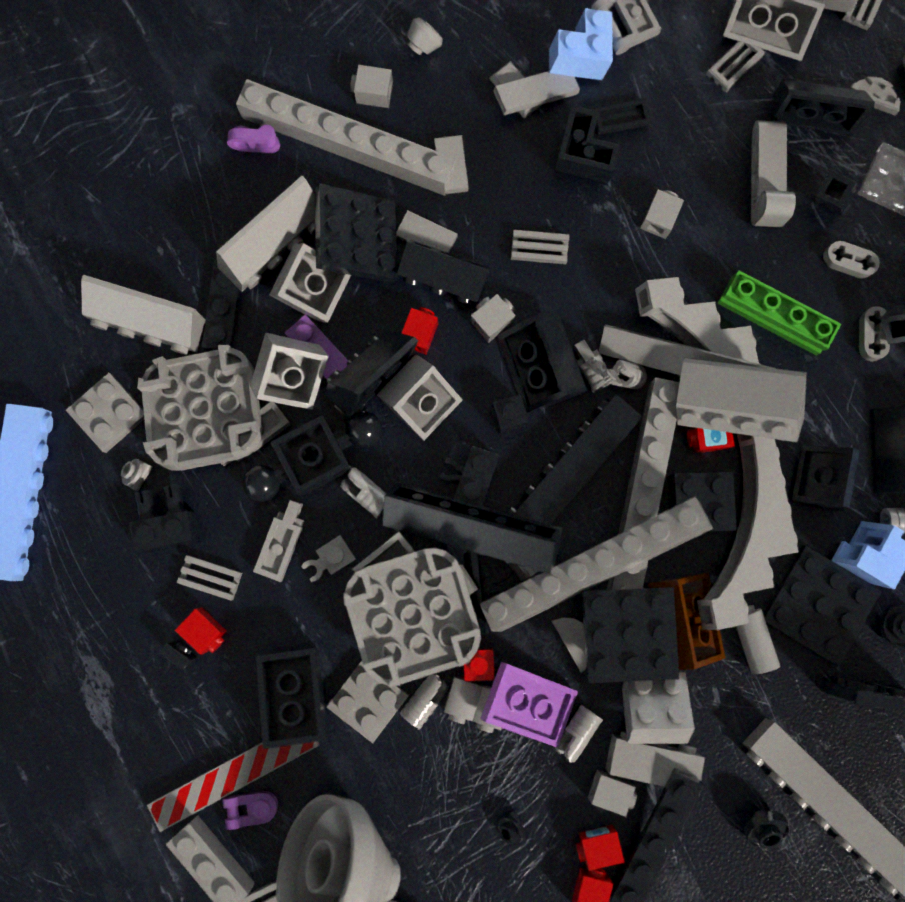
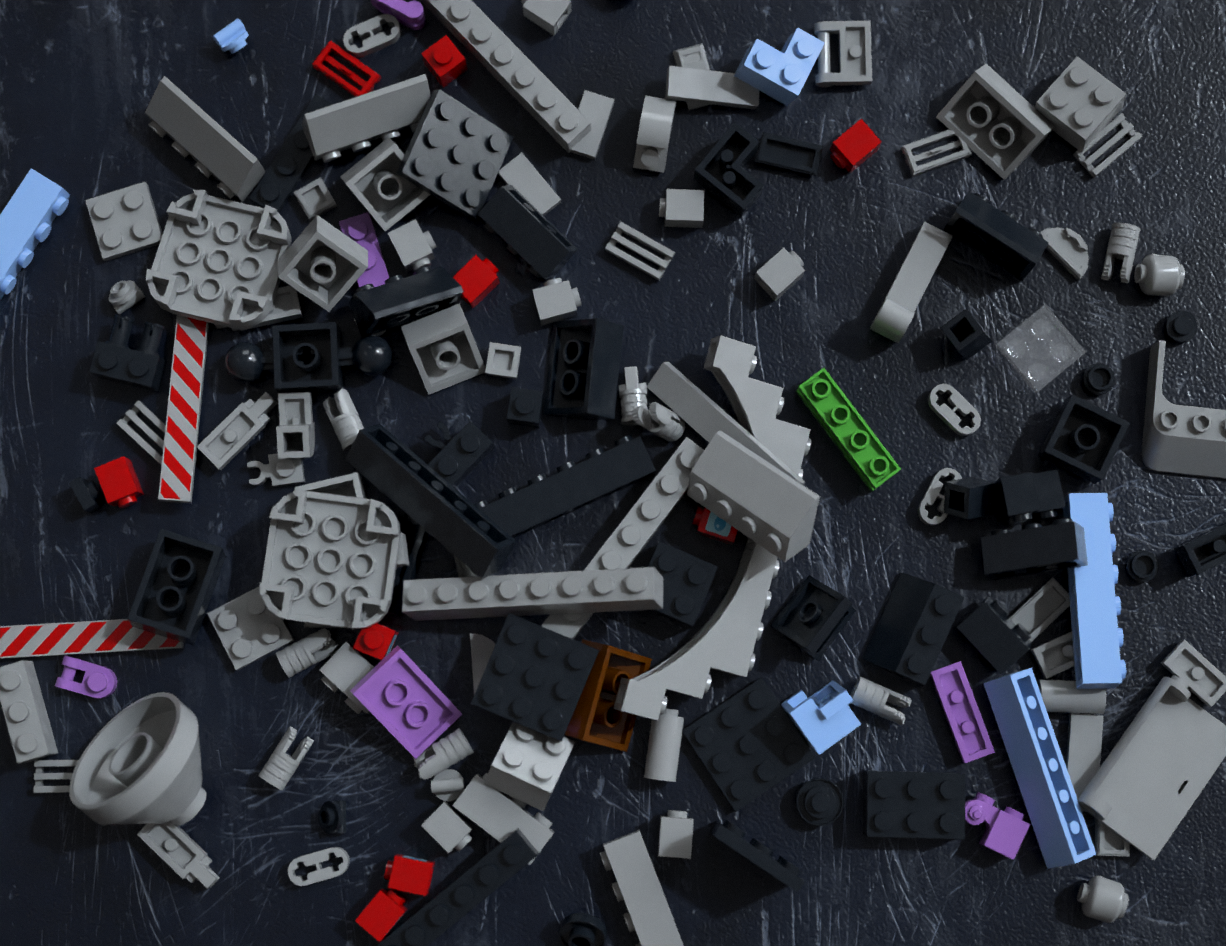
camera: 25 degrees right, 0 degrees up
(126, 222) = (231, 37): none -> light blue plate
(214, 195) = (324, 56): none -> red tile
(228, 547) = (183, 410): none -> tile
(243, 173) = (375, 42): none -> light grey beam
(256, 323) = (315, 198): none -> light grey tile
(310, 163) = (444, 61): none -> red brick
(328, 516) = (296, 425): none -> light grey brick
(355, 325) = (413, 246): none -> light grey brick
(449, 805) = (281, 765): none -> light grey hinge
(472, 384) = (503, 360): none -> light grey plate
(509, 145) = (654, 133): none -> light grey brick
(524, 881) = (321, 873): none -> light grey beam
(559, 196) = (682, 208): none -> light grey brick
(594, 756) = (448, 785): none -> light grey plate
(672, 86) = (854, 146): none -> red brick
(801, 710) = (675, 835): none -> light grey brick

